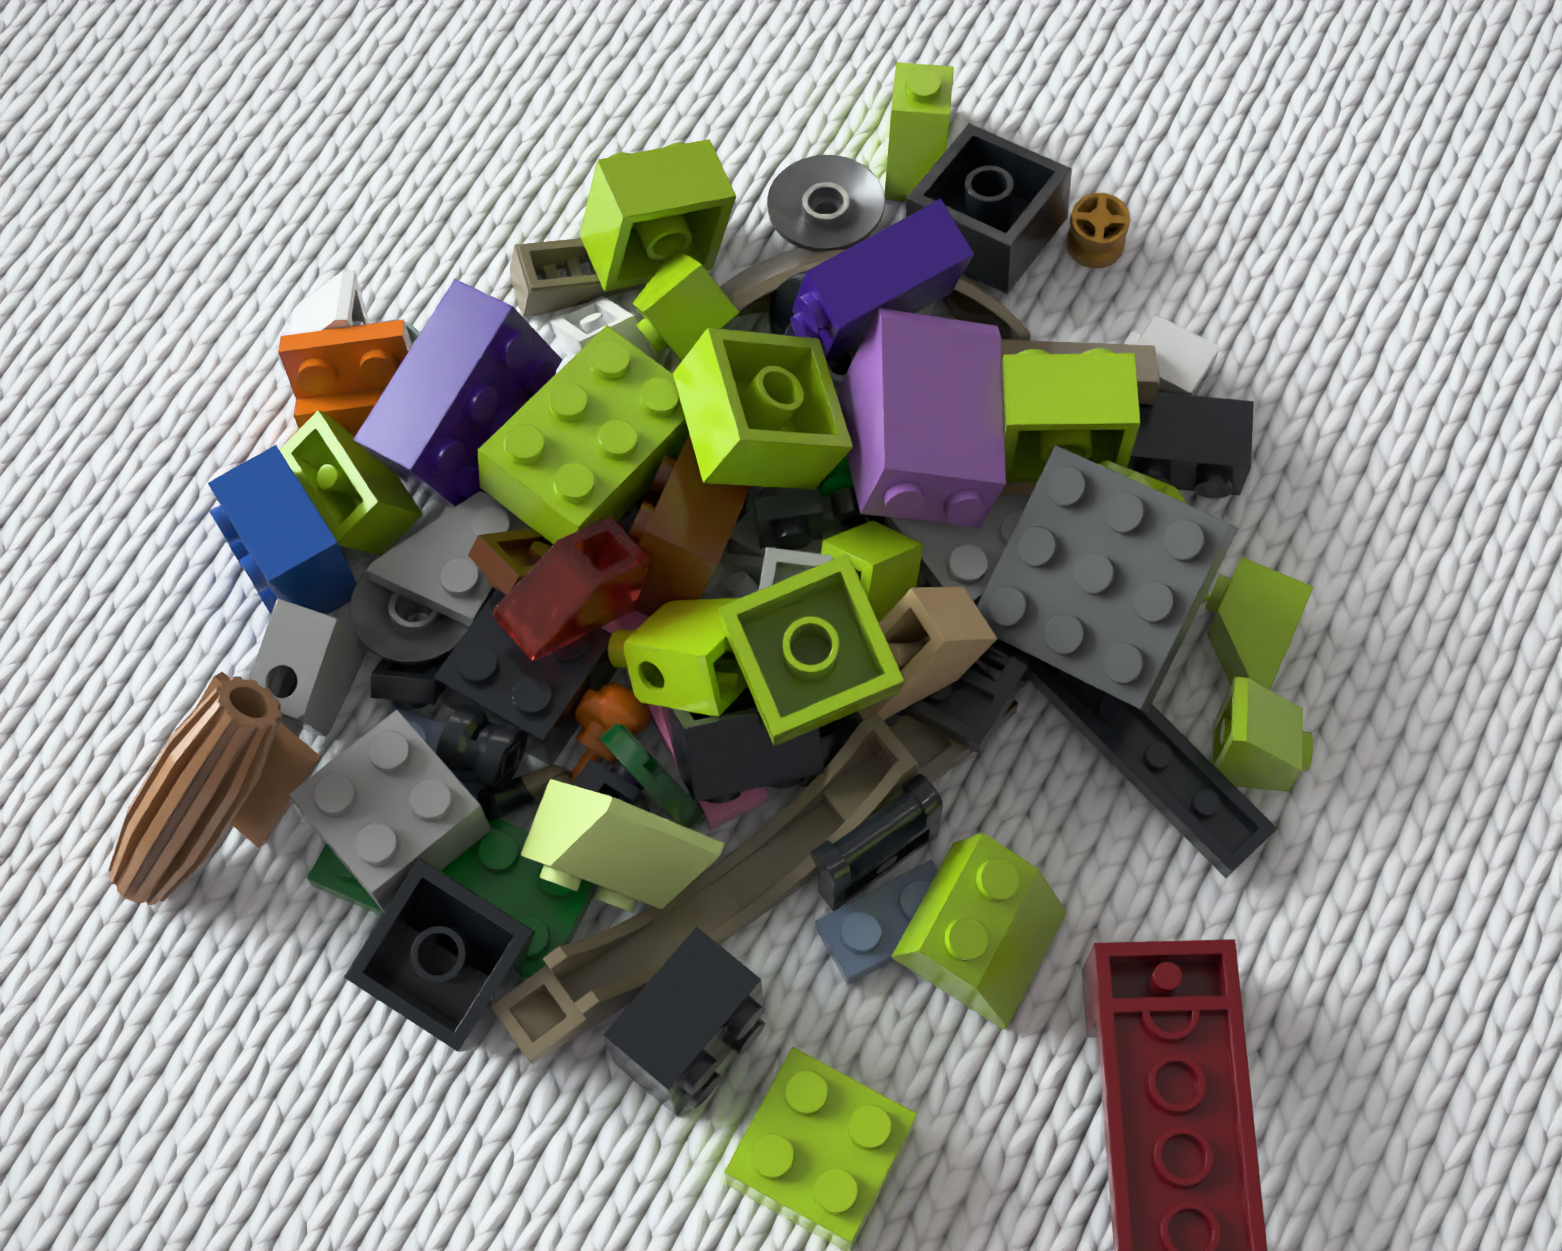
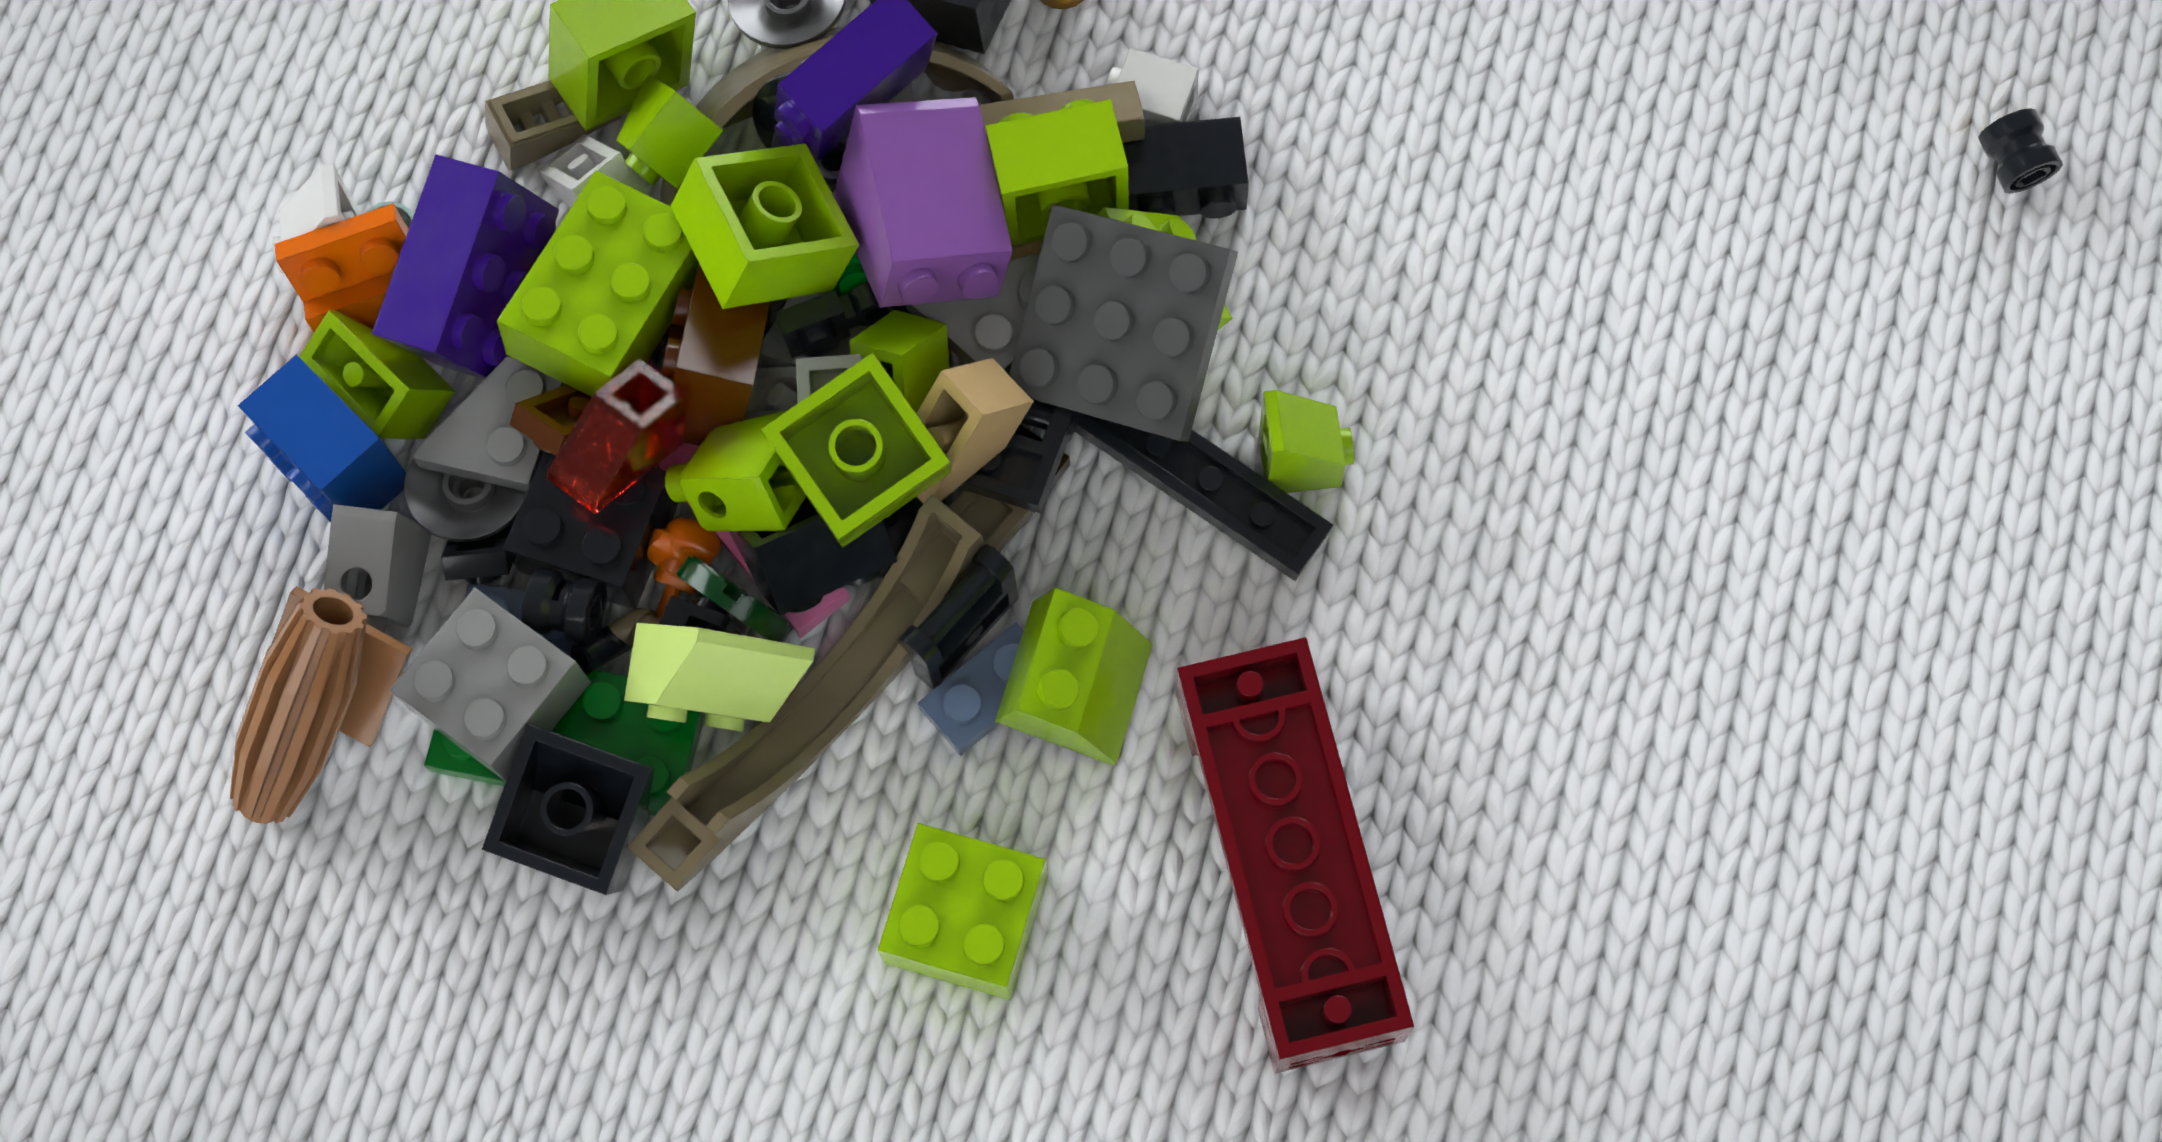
camera: 10 degrees left, 5 degrees up
(688, 1023) = (816, 822): black brick -> none
(1255, 620) = (1279, 330): lime slope -> none

